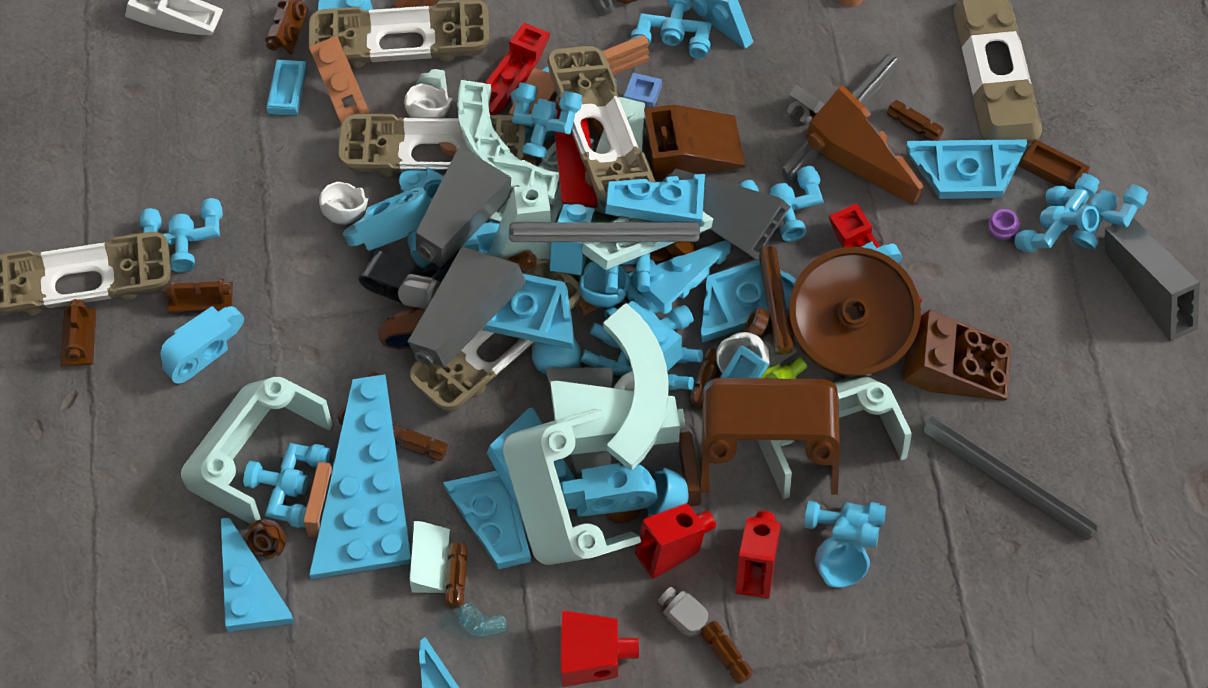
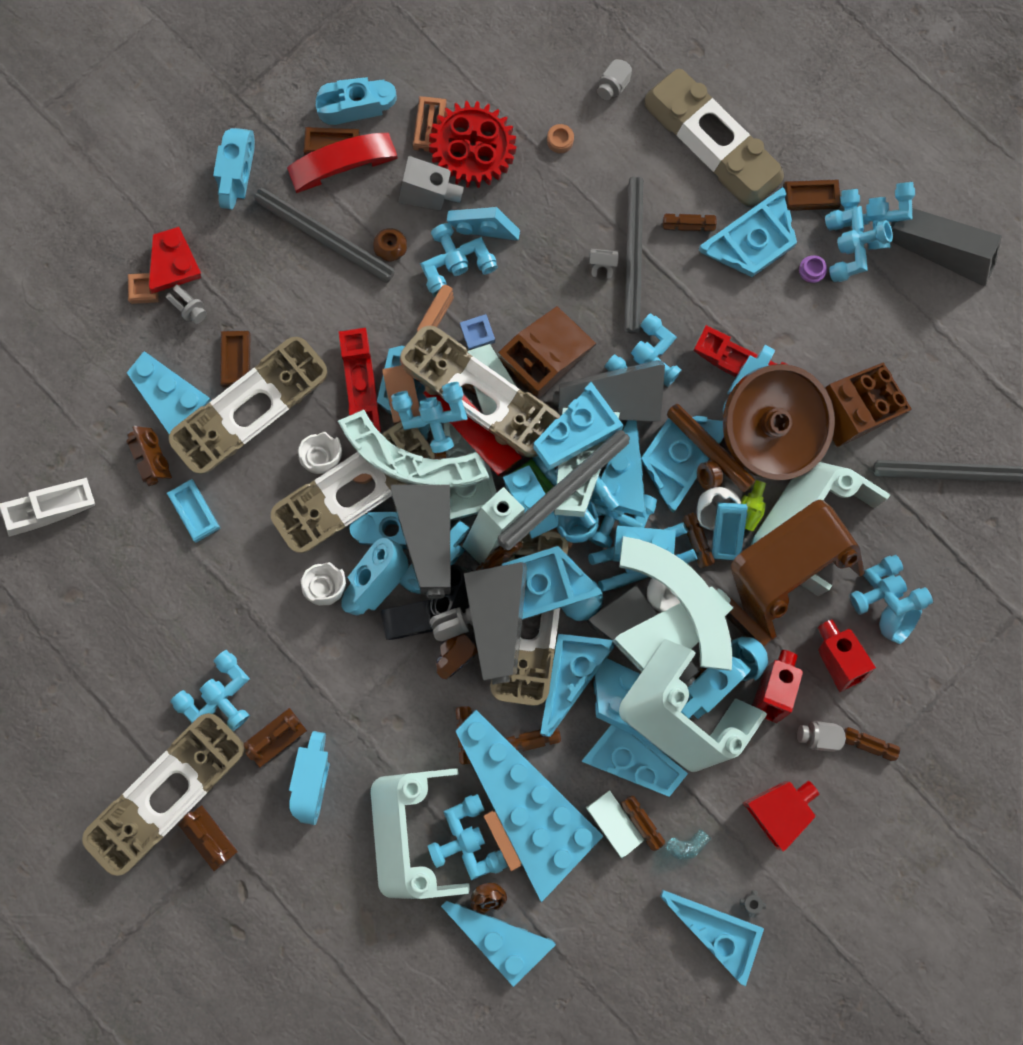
camera: 40 degrees left, 20 degrees up
(338, 77) = (235, 480): nougat plate -> none
(435, 78) = (309, 428): light aqua tile -> none
(501, 402) = (572, 669): none -> medium azure wing
(851, 141) = (663, 273): dark orange wedge -> none

